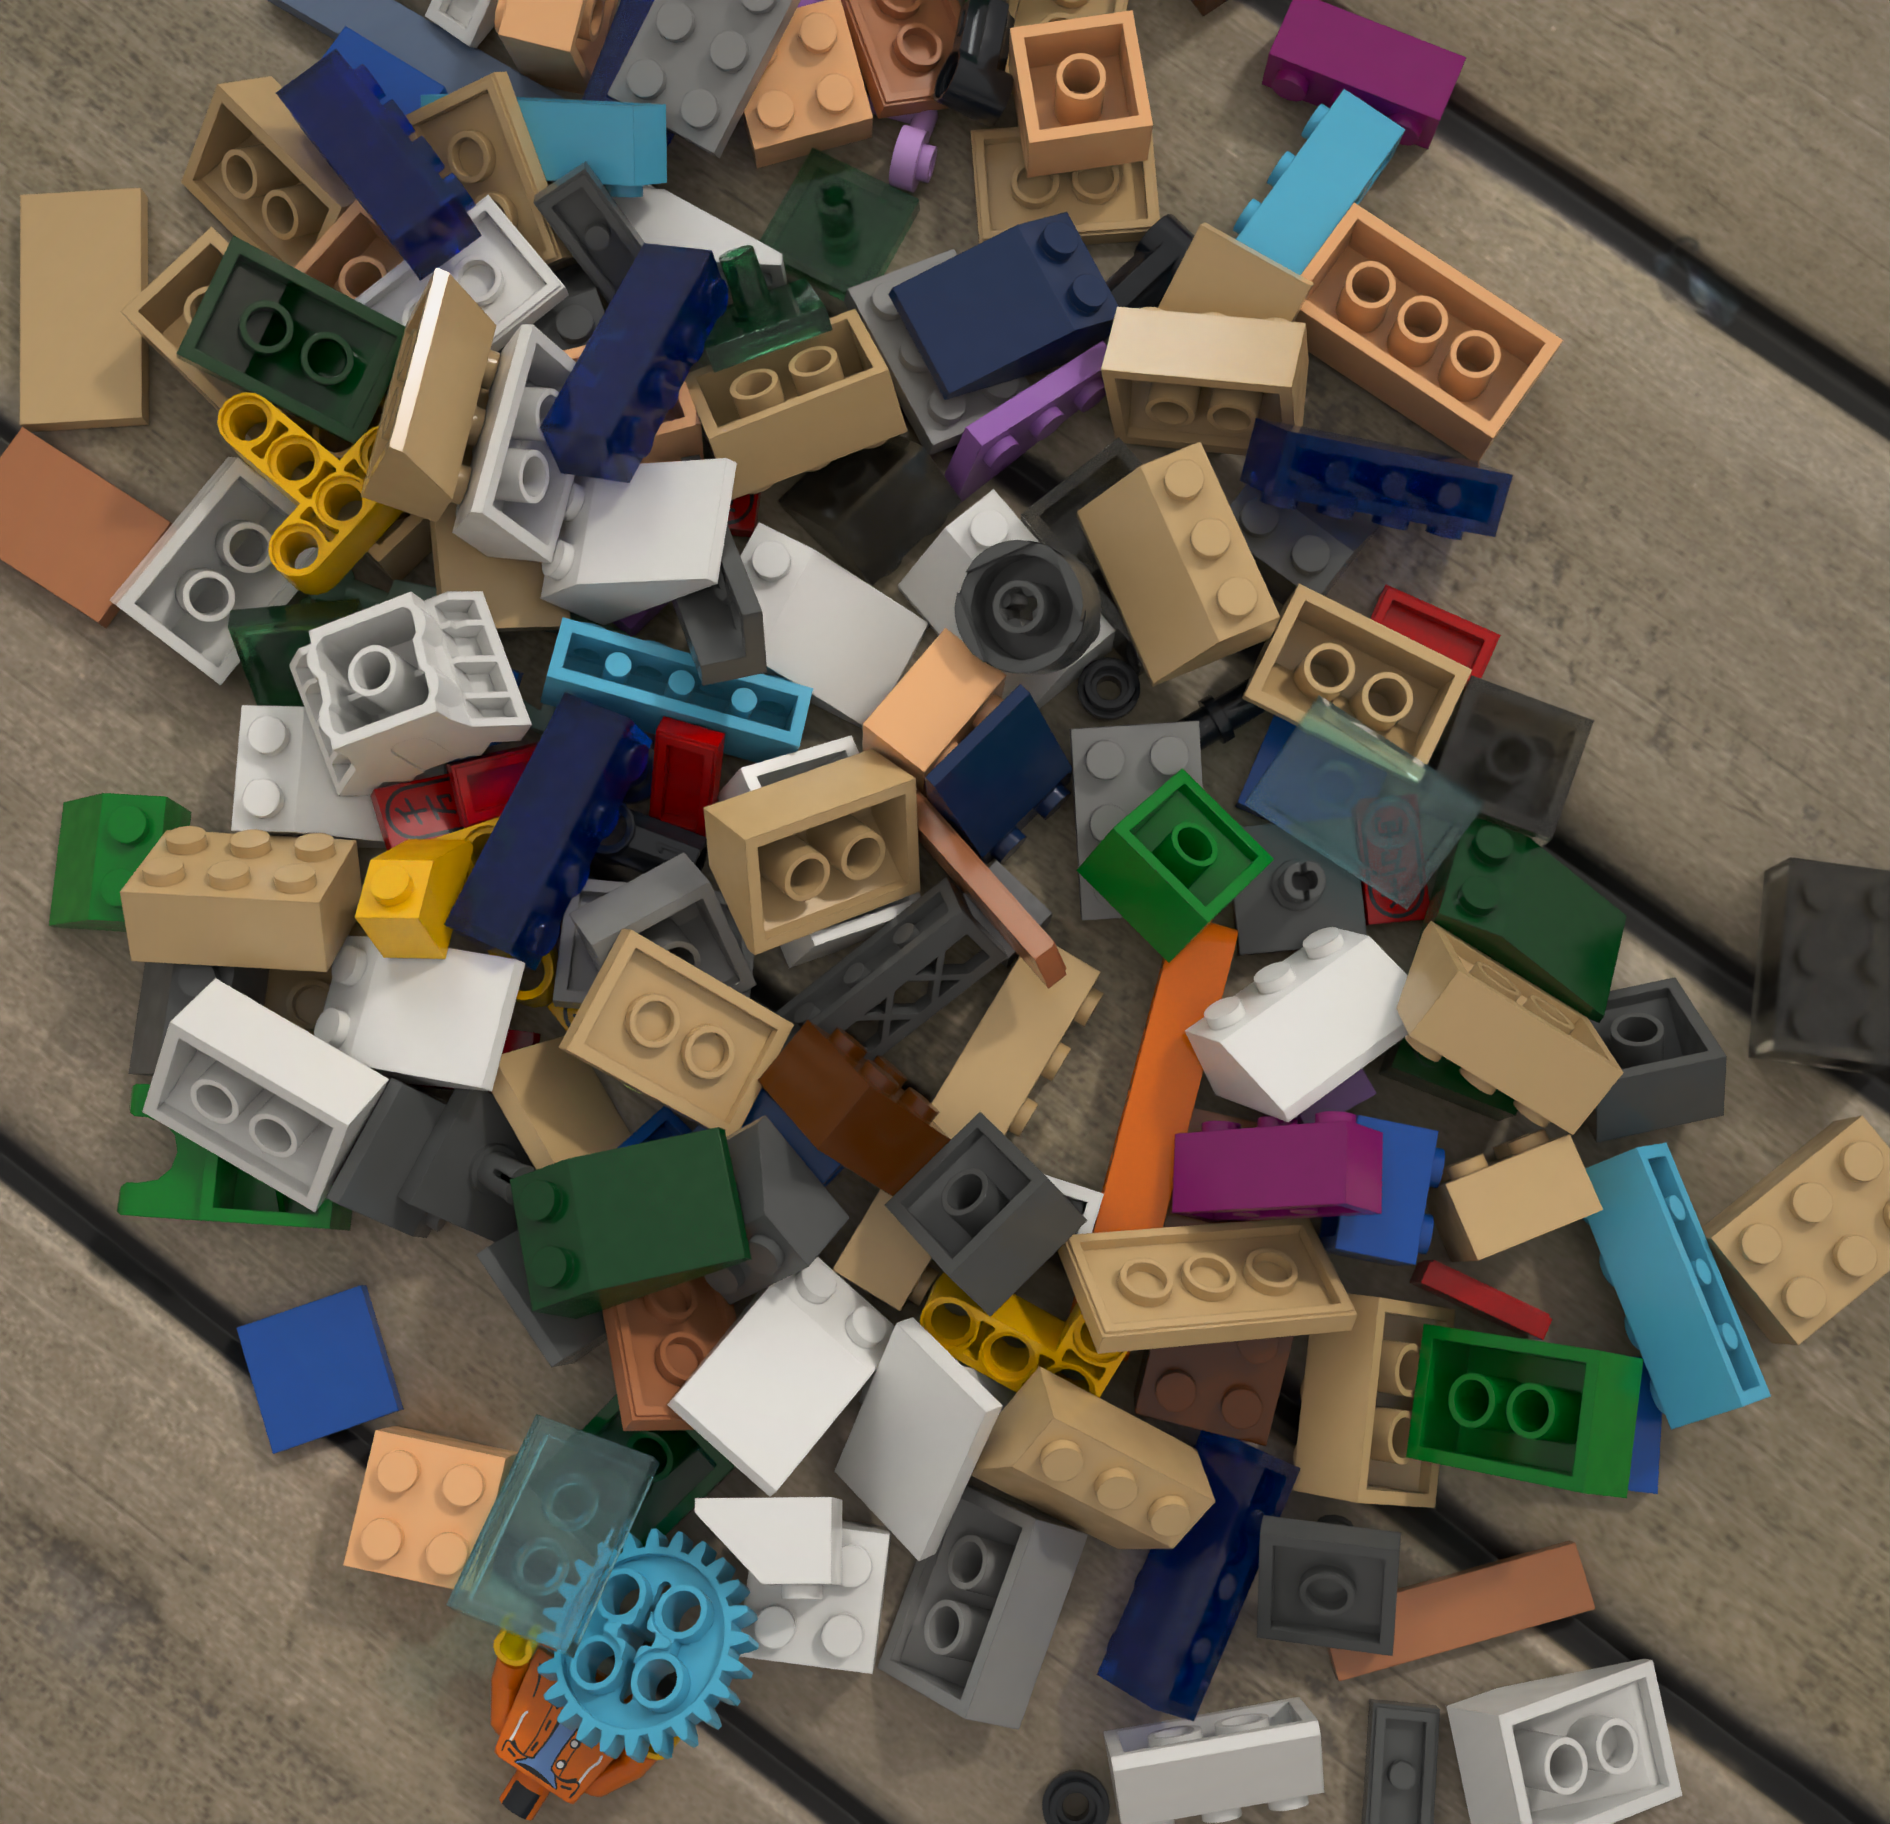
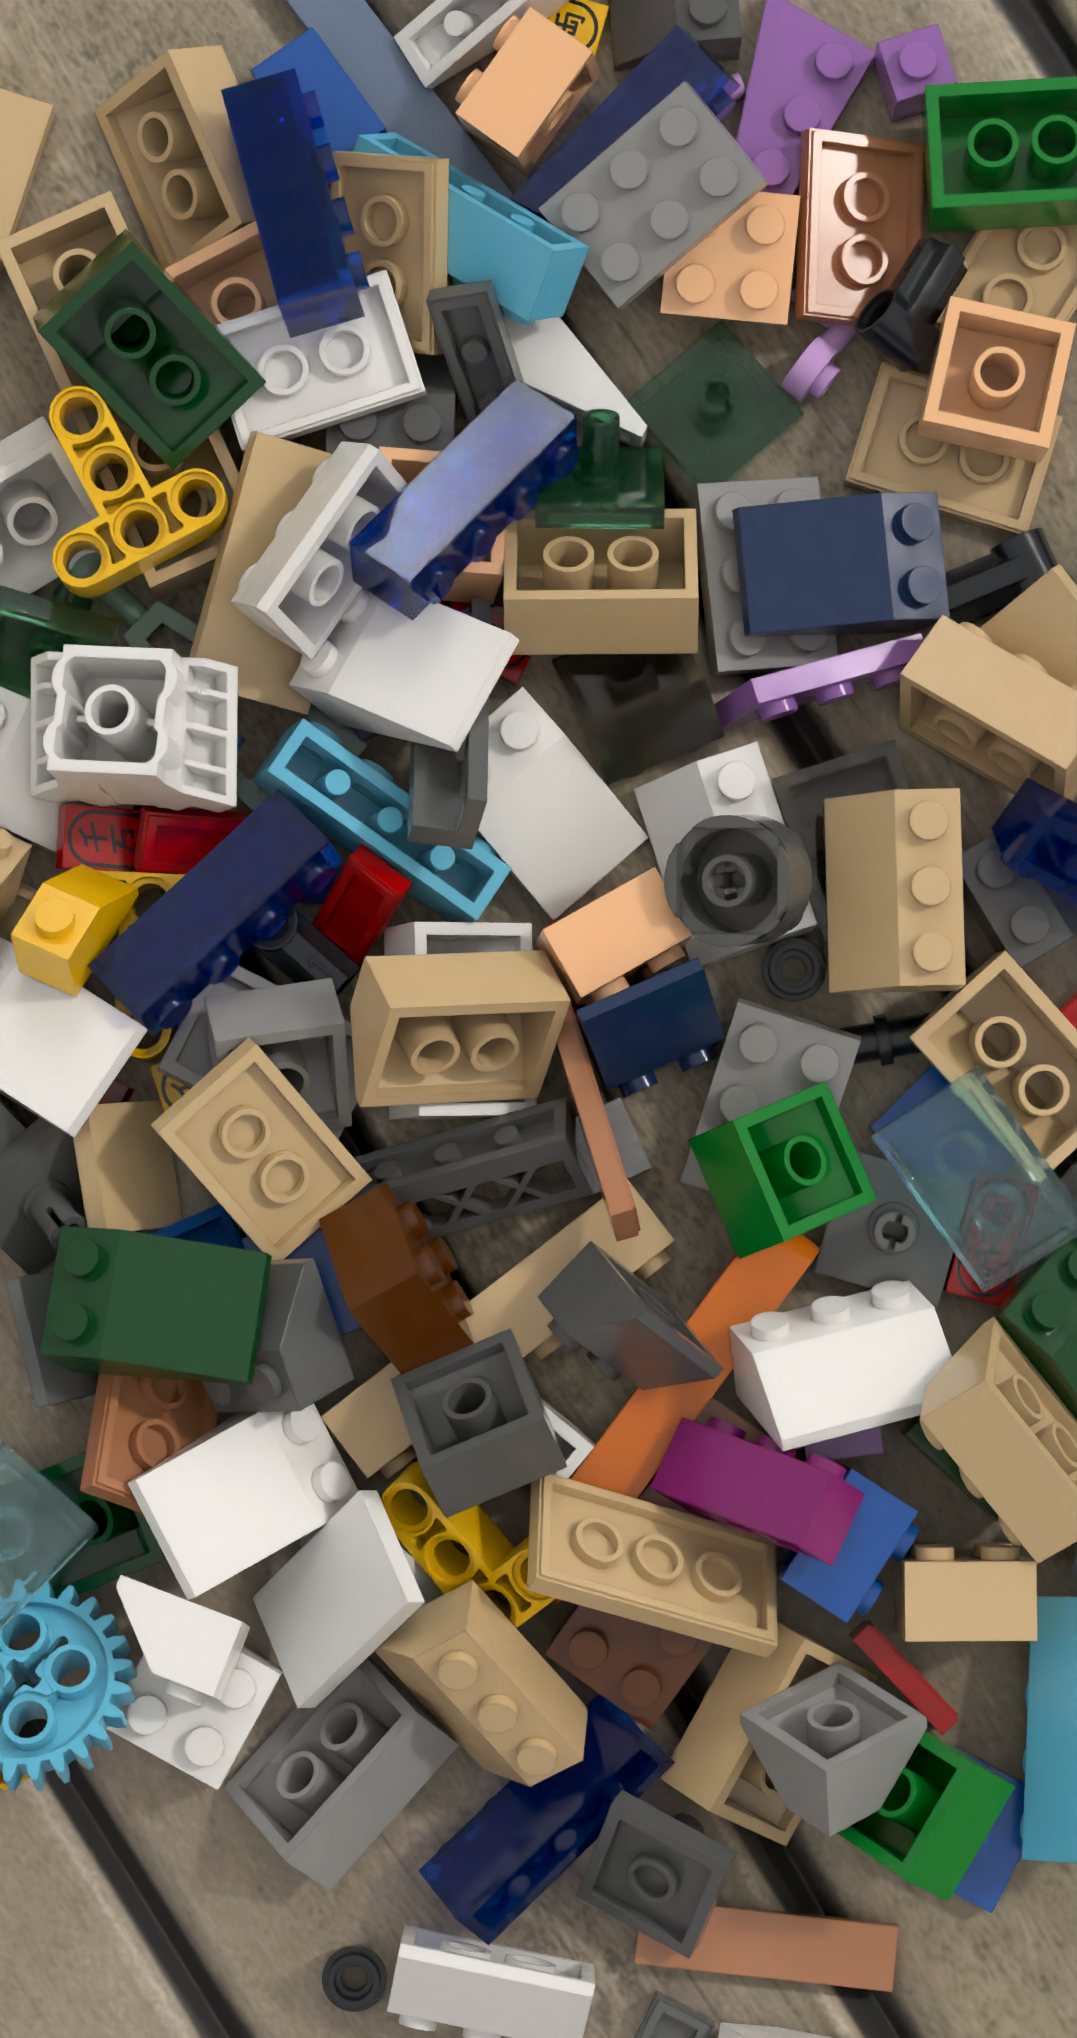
camera: 20 degrees right, 5 degrees up
(433, 403) = (257, 475): tan slope -> none
(1085, 1067) = (624, 1324): none -> dark grey slope
(1452, 1390) = (833, 1745): none -> light grey slope

